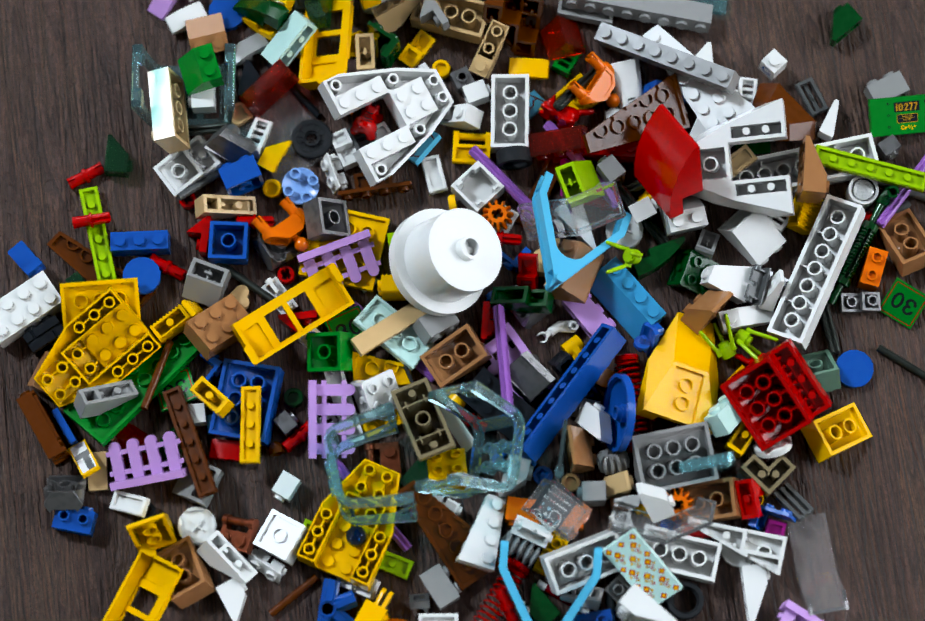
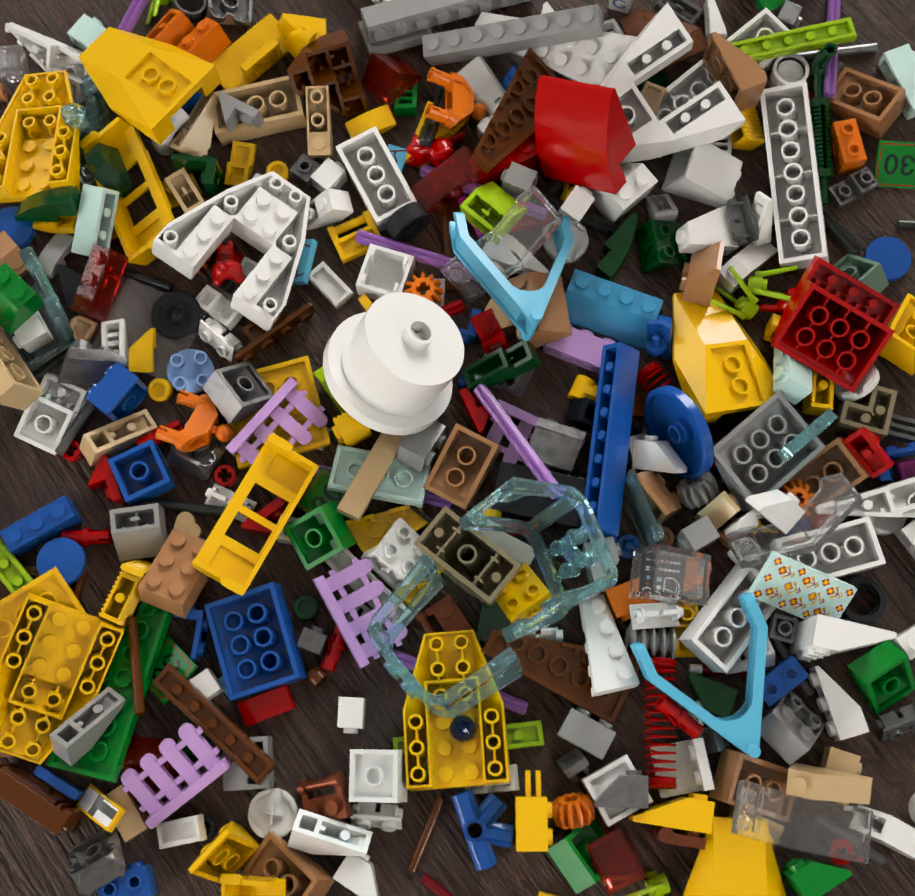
camera: 25 degrees left, 0 degrees up
(211, 397) = (212, 658): yellow brick -> none
(250, 425) = (274, 666): yellow tile -> none
(567, 326) = (555, 375): white arm -> none
(630, 257) = (591, 260): lime plant -> none

